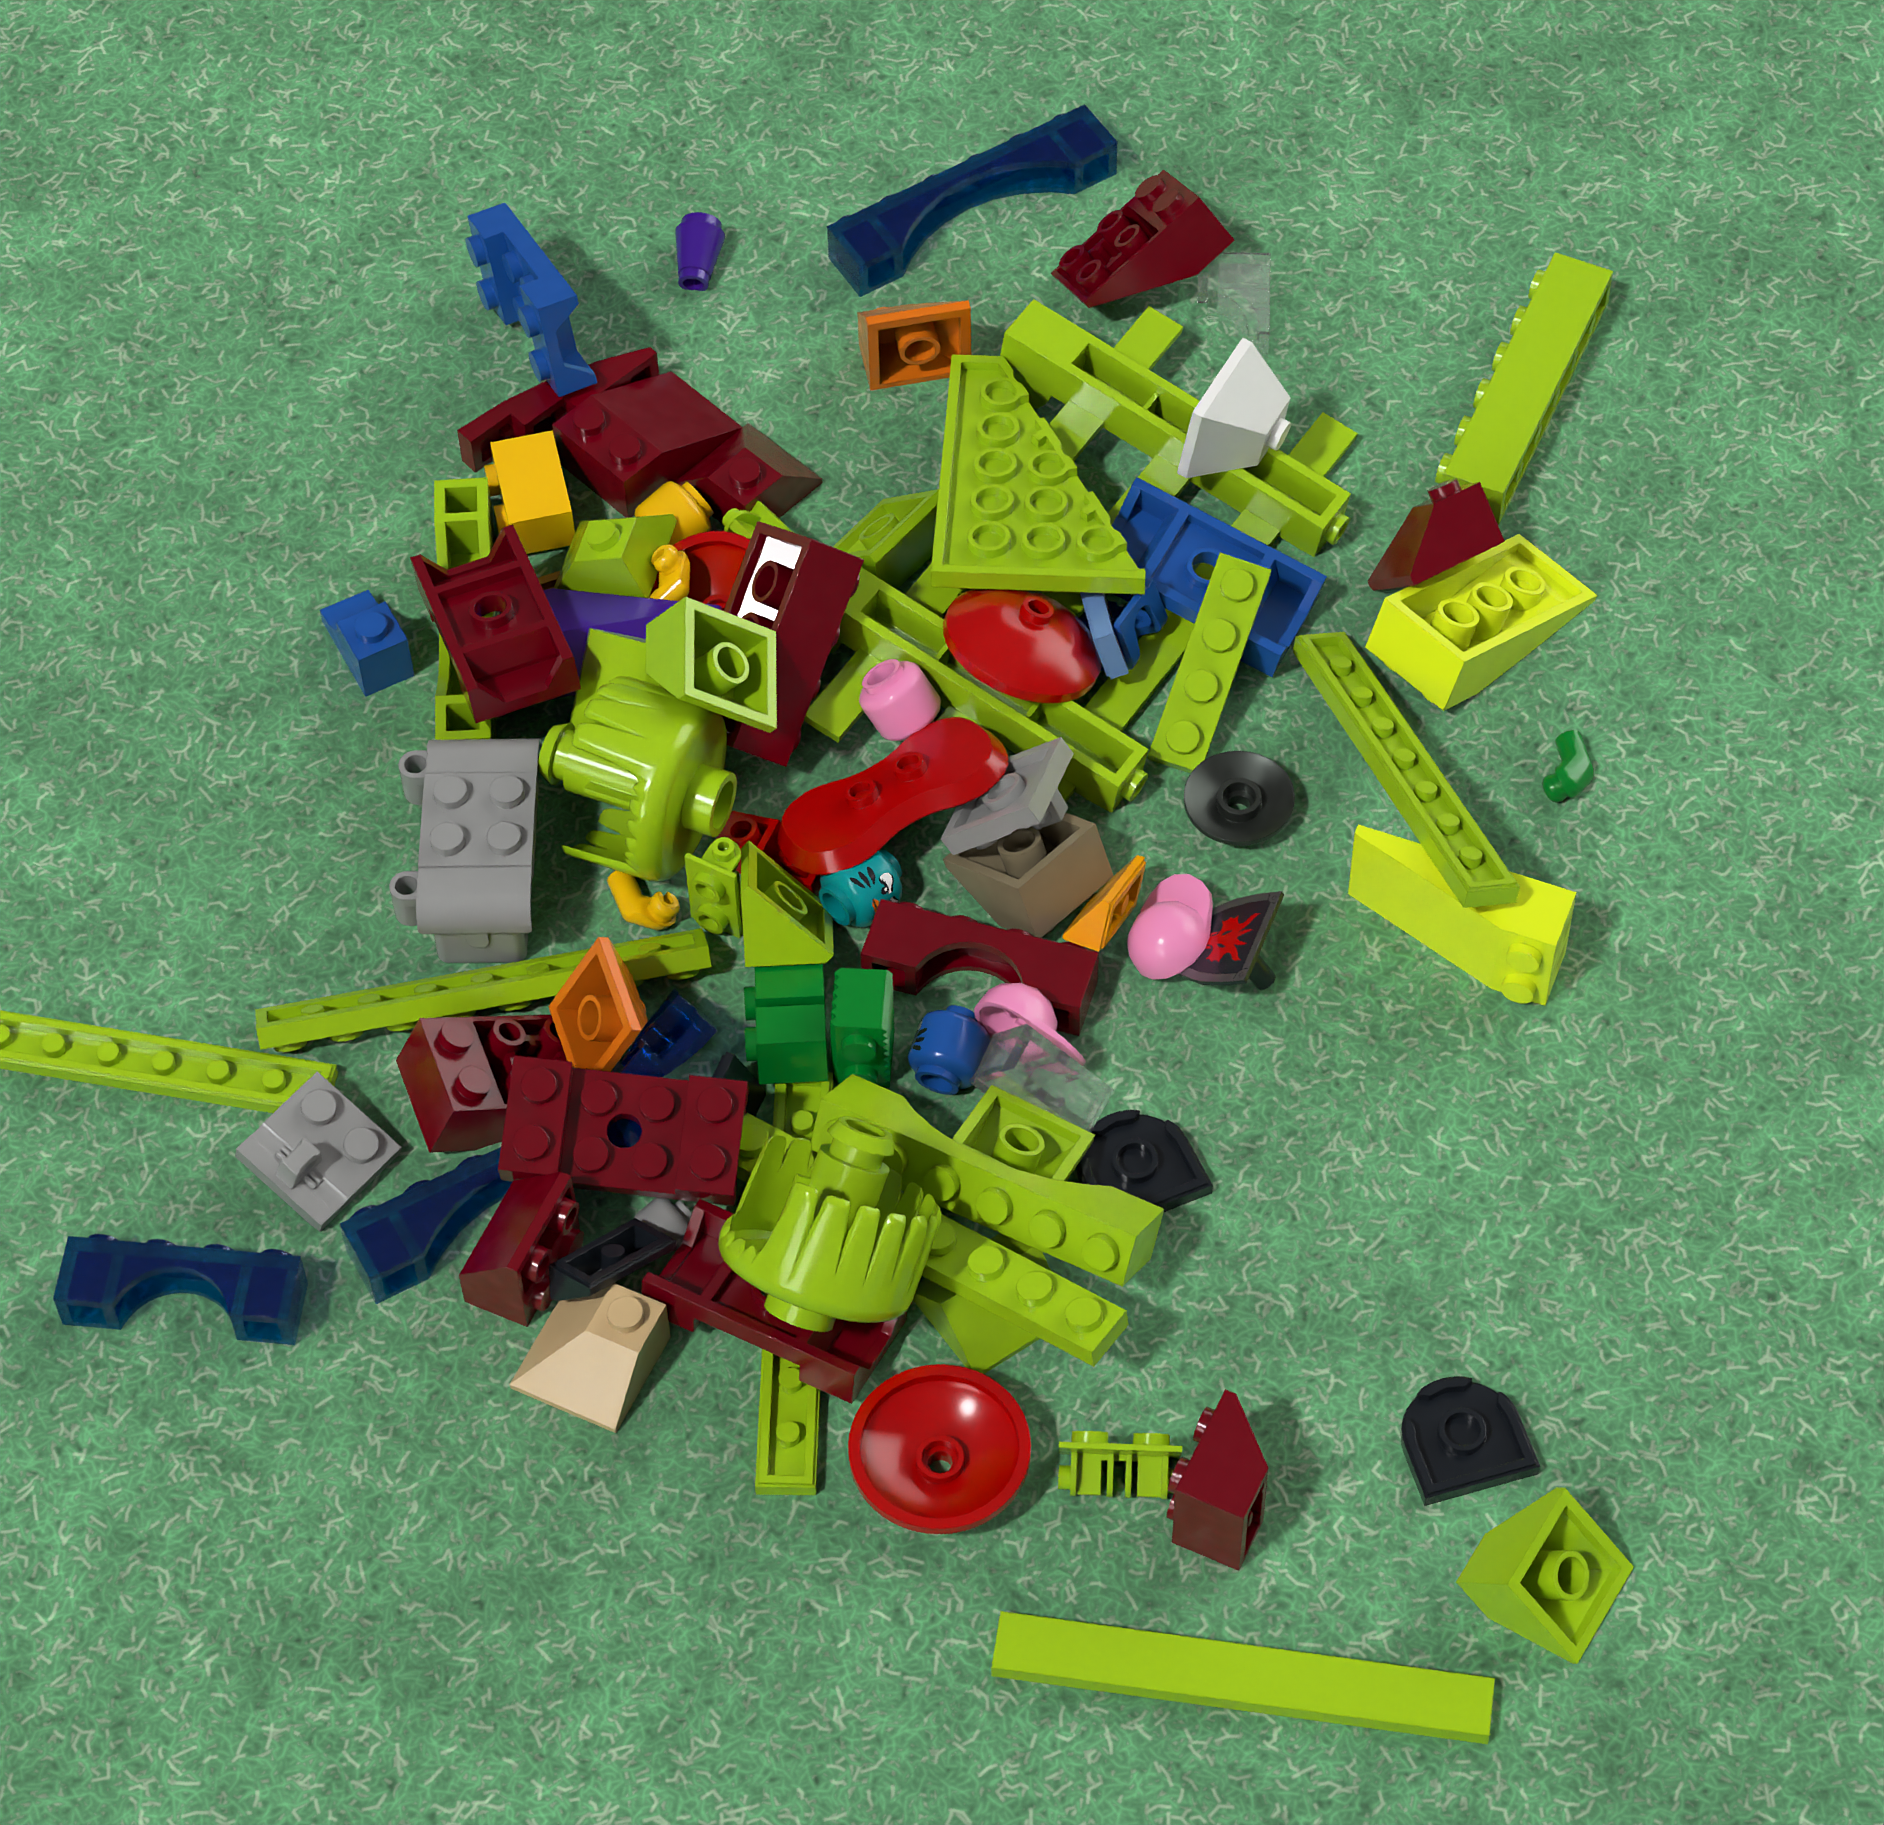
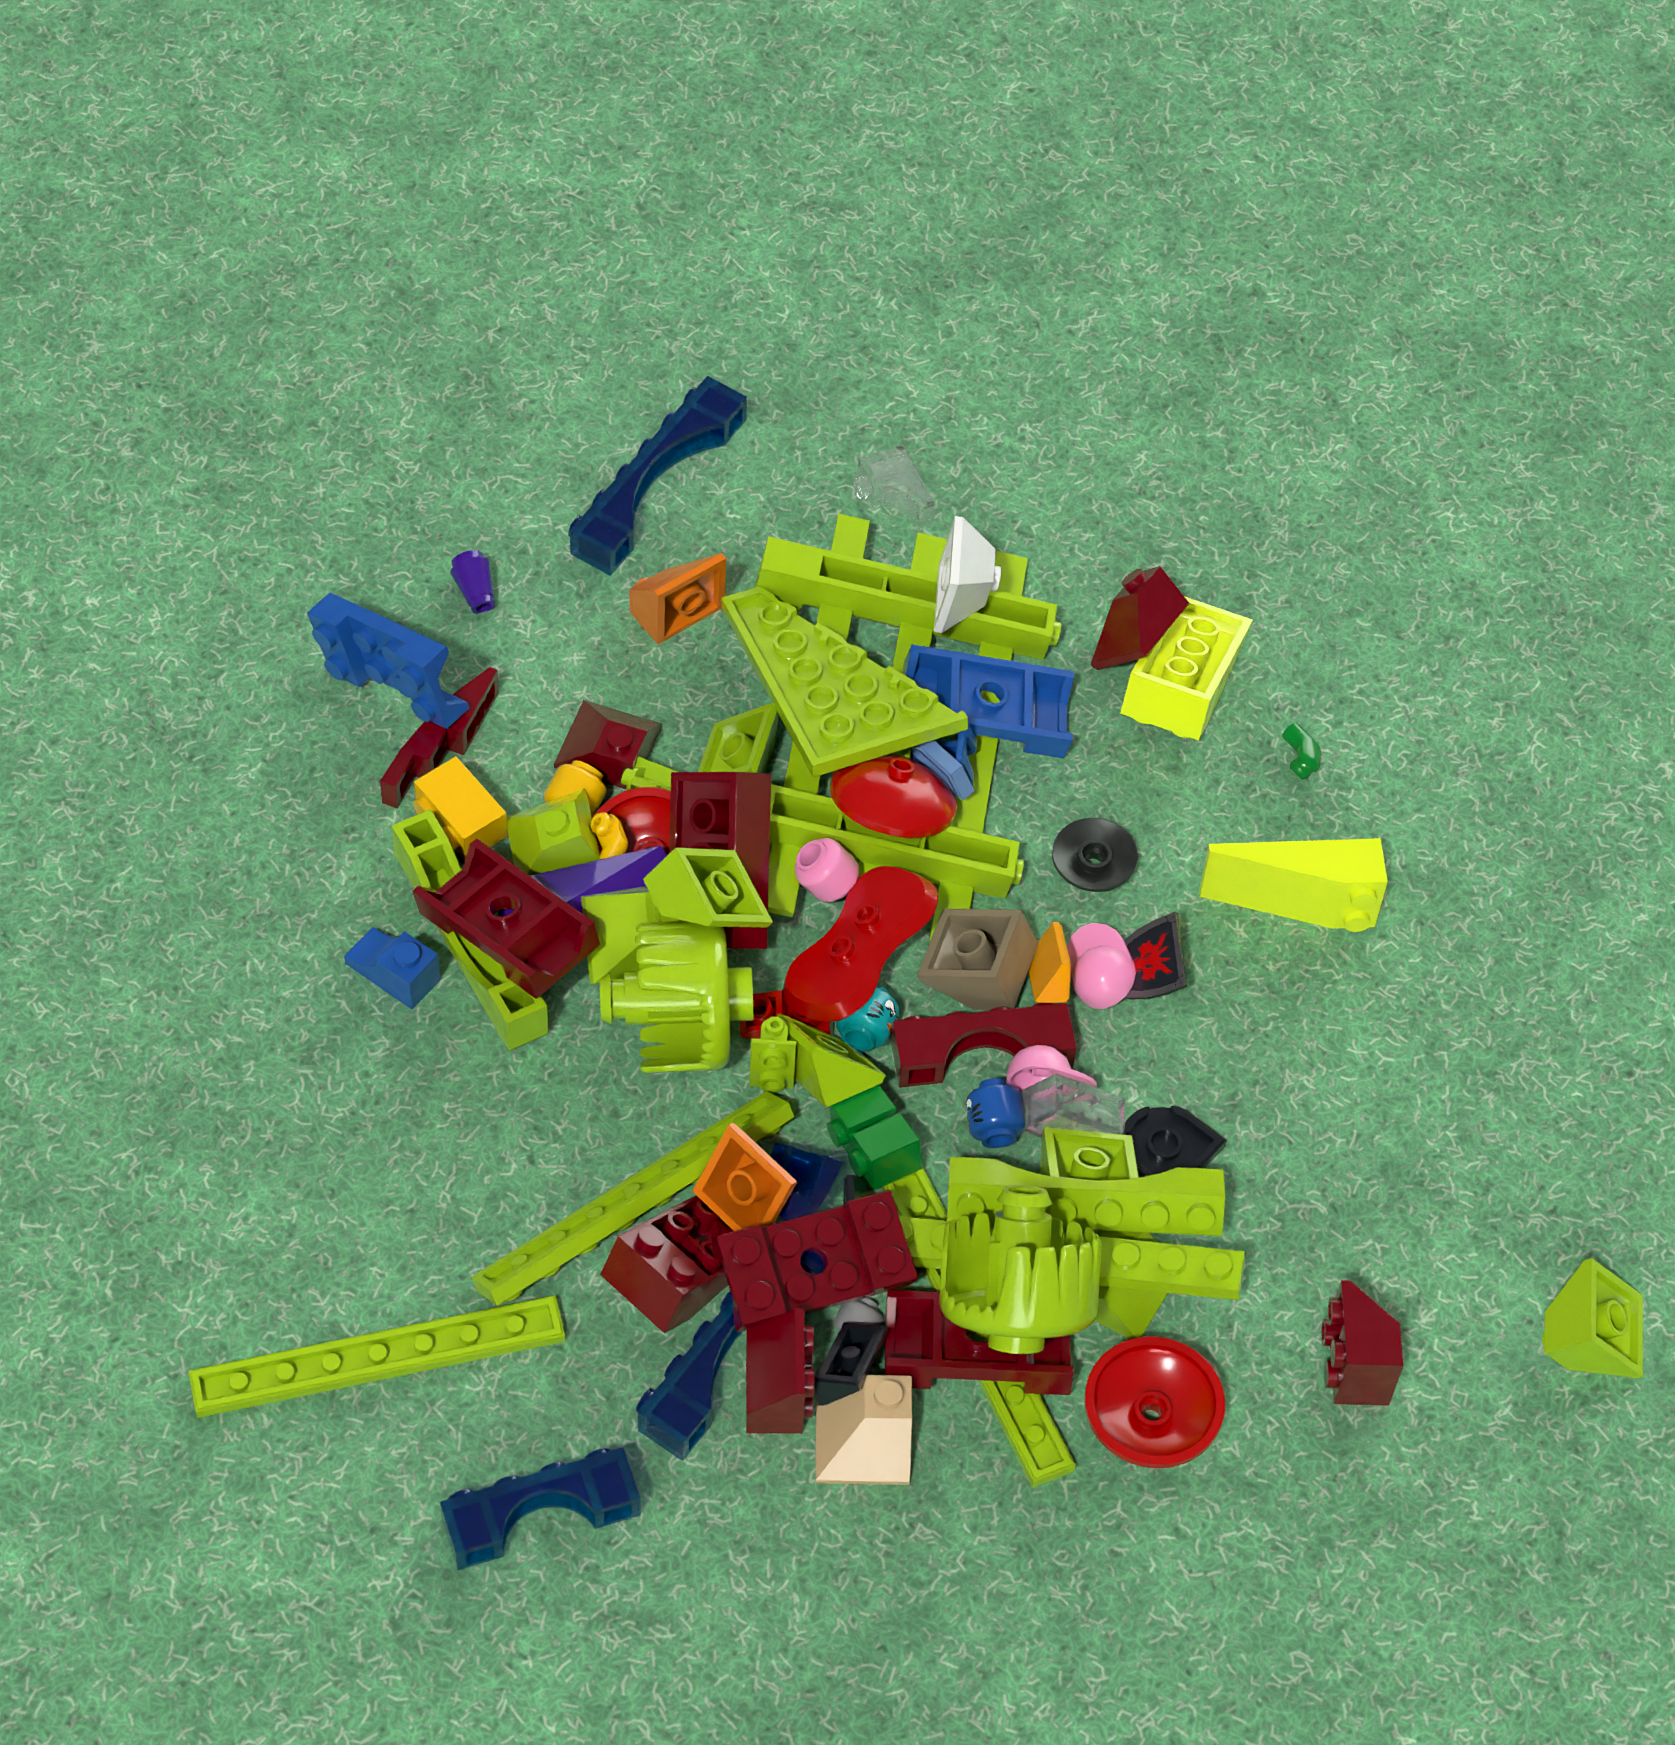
camera: 30 degrees left, 0 degrees up
(318, 1151) = (581, 1365): light grey hinge -> none
(472, 847) = (585, 1088): light grey container -> none
(639, 438) = (515, 740): dark red slope -> none
(649, 912) = (714, 1093): yellow arm -> none
(862, 1025) = (936, 1119): green brick -> none
(1019, 800) = (959, 915): light grey hinge -> none
(1092, 1447) = (1292, 1360): lime hinge -> none
(1145, 244) = (809, 468): dark red slope -> none
(1209, 663) = (1028, 763): lime plate -> none
(1243, 1677) = (1432, 1478): lime tile -> none
(1406, 771) = (1210, 792): lime tile -> none
(1464, 1440) = (1488, 1253): black tile -> none
(1528, 379) = (1126, 478): lime brick -> none

